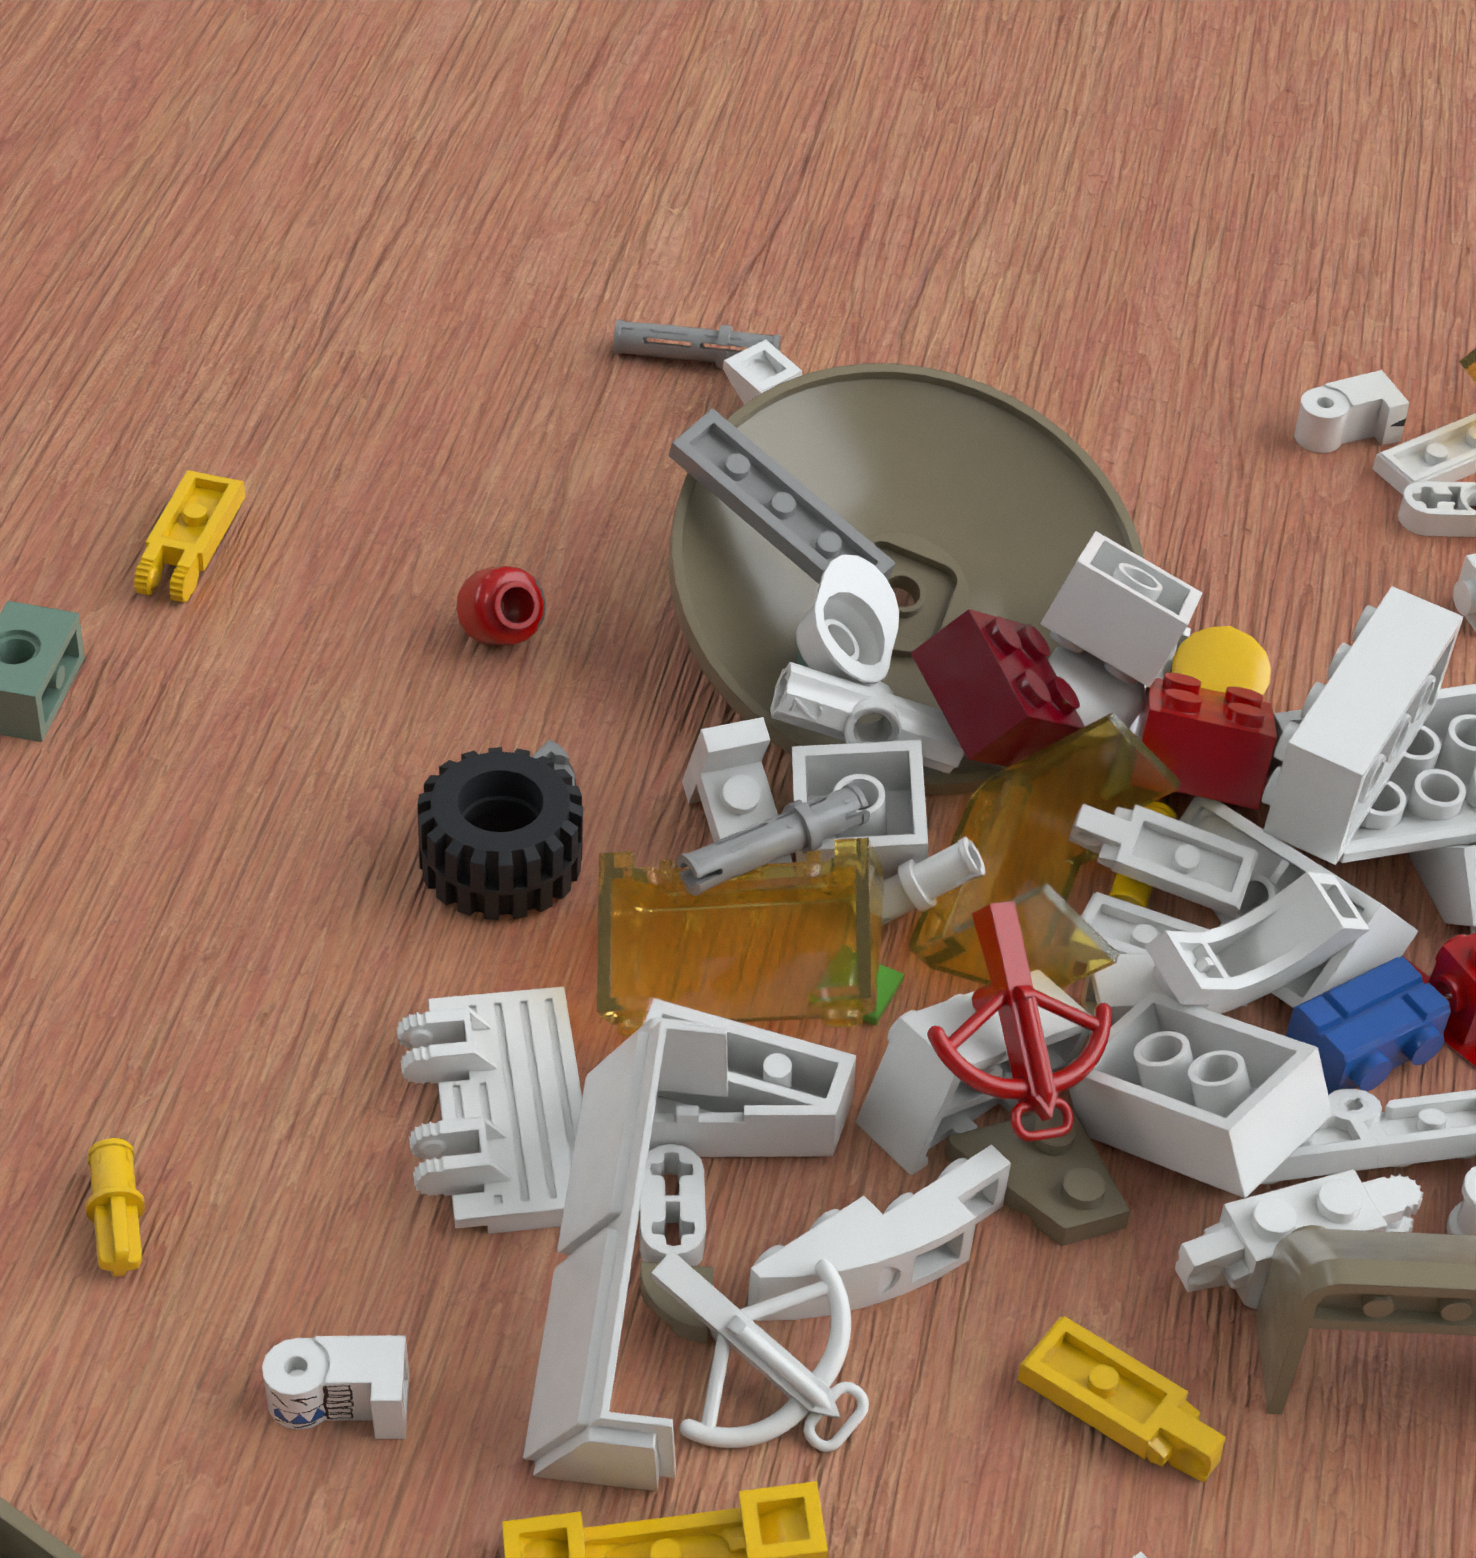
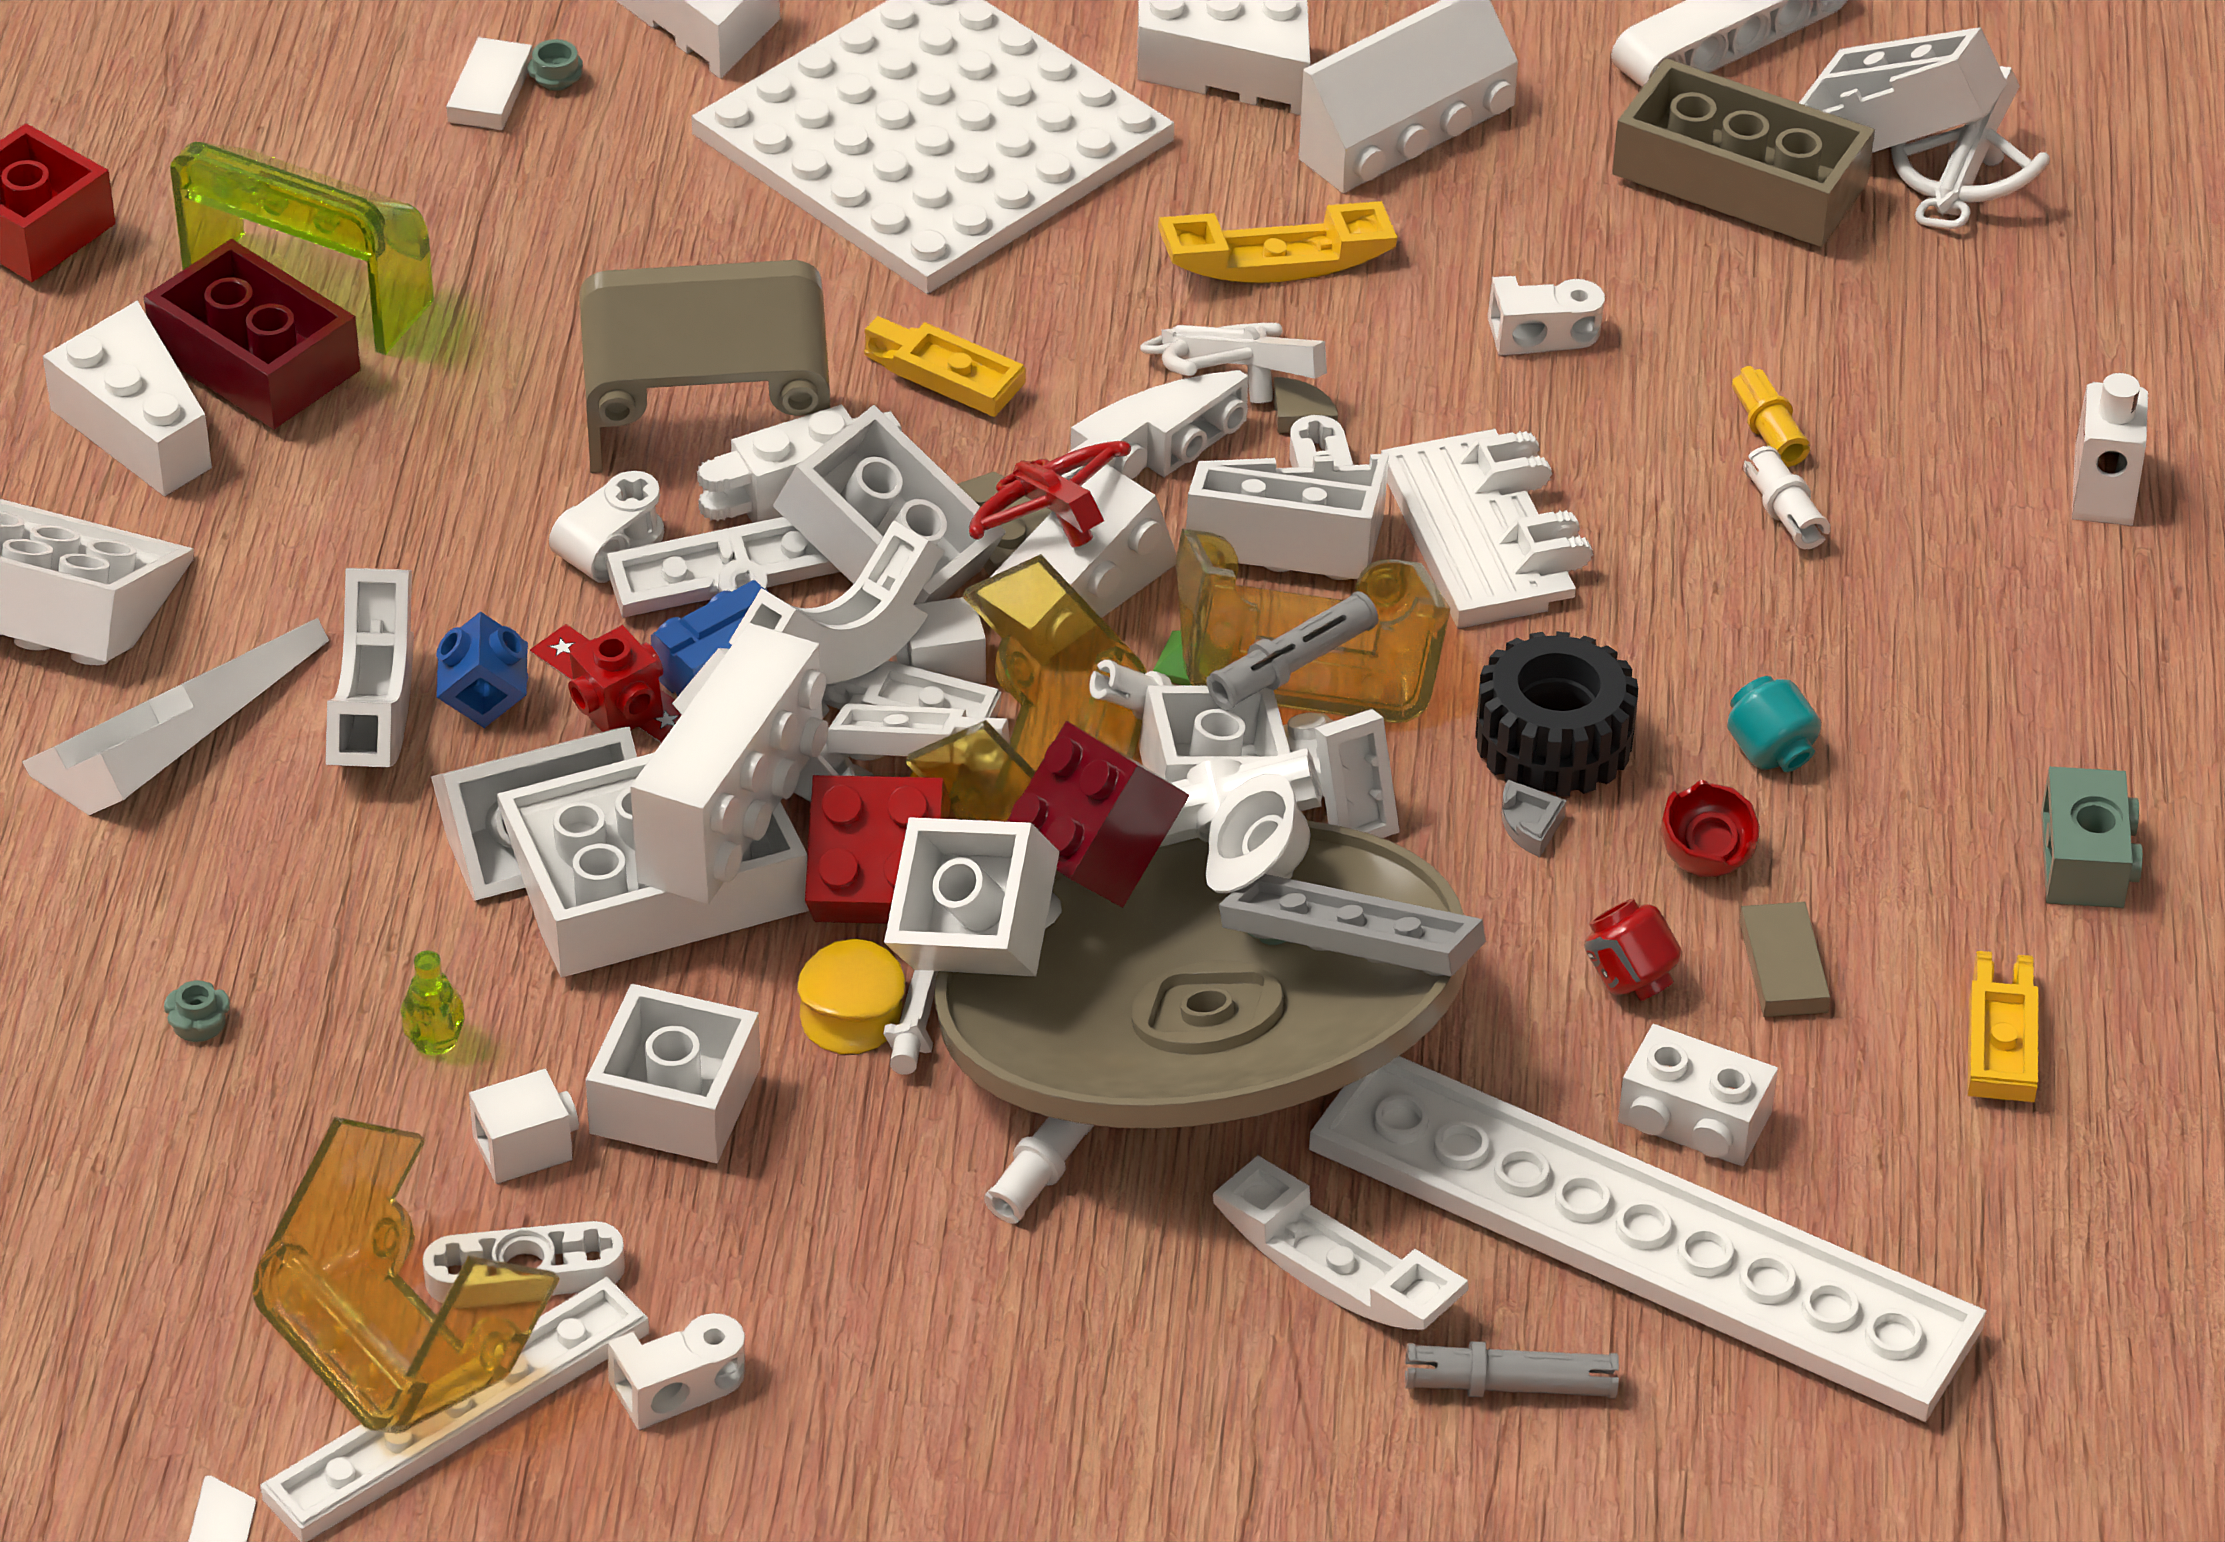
camera: 175 degrees right, 0 degrees up
(146, 1086) = (1786, 497): none -> white pin
(278, 810) = (1774, 724): none -> teal head
(356, 620) = (1784, 959): none -> dark tan tile
(392, 712) = (1709, 829): none -> red hair
(483, 501) = (1693, 1097): none -> white brick
(511, 395) = (1652, 1234): none -> white plate
(570, 1418) = (1353, 414): white piece -> none
(1359, 572) = (673, 1073): none -> white brick

